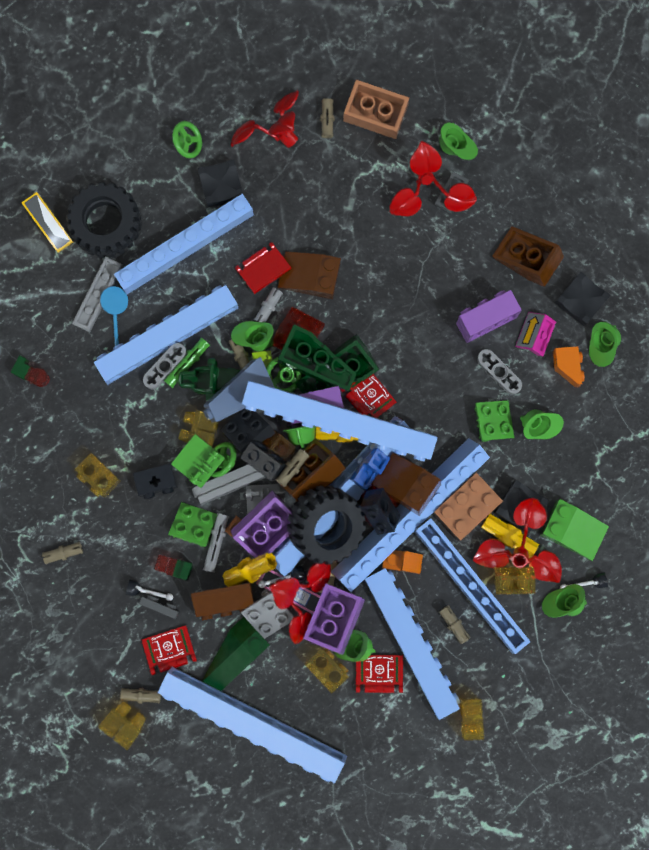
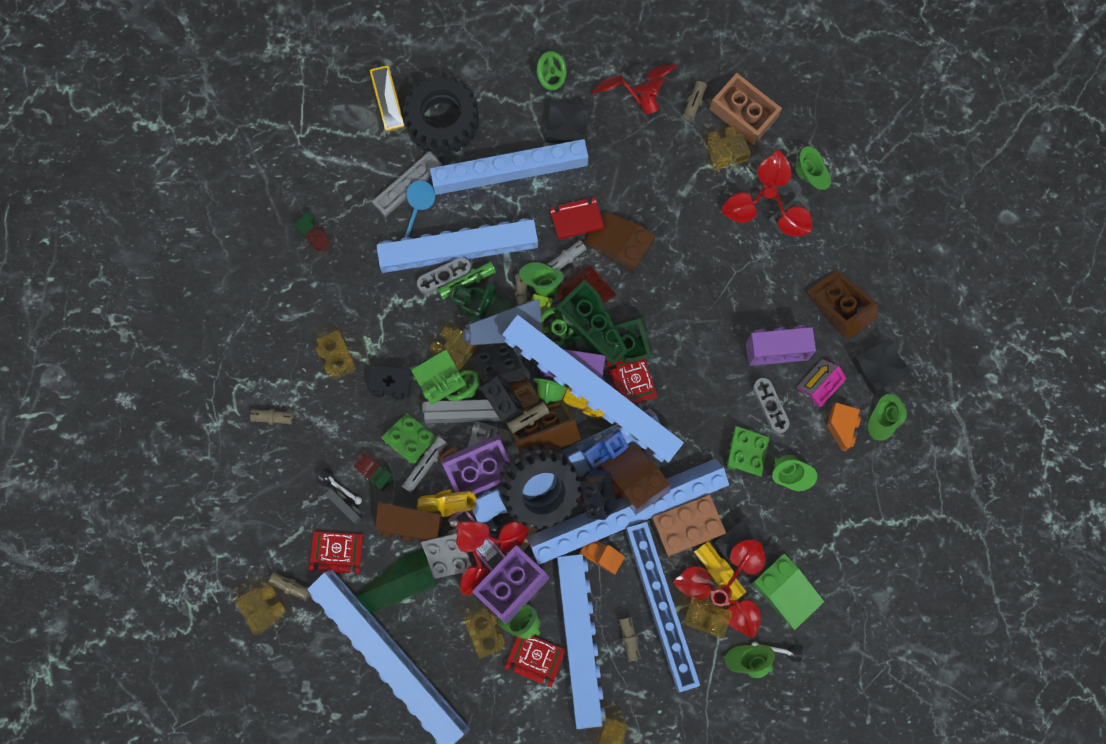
camera: 20 degrees right, 5 degrees down
(375, 153) = (728, 150): none -> clear yellow hips

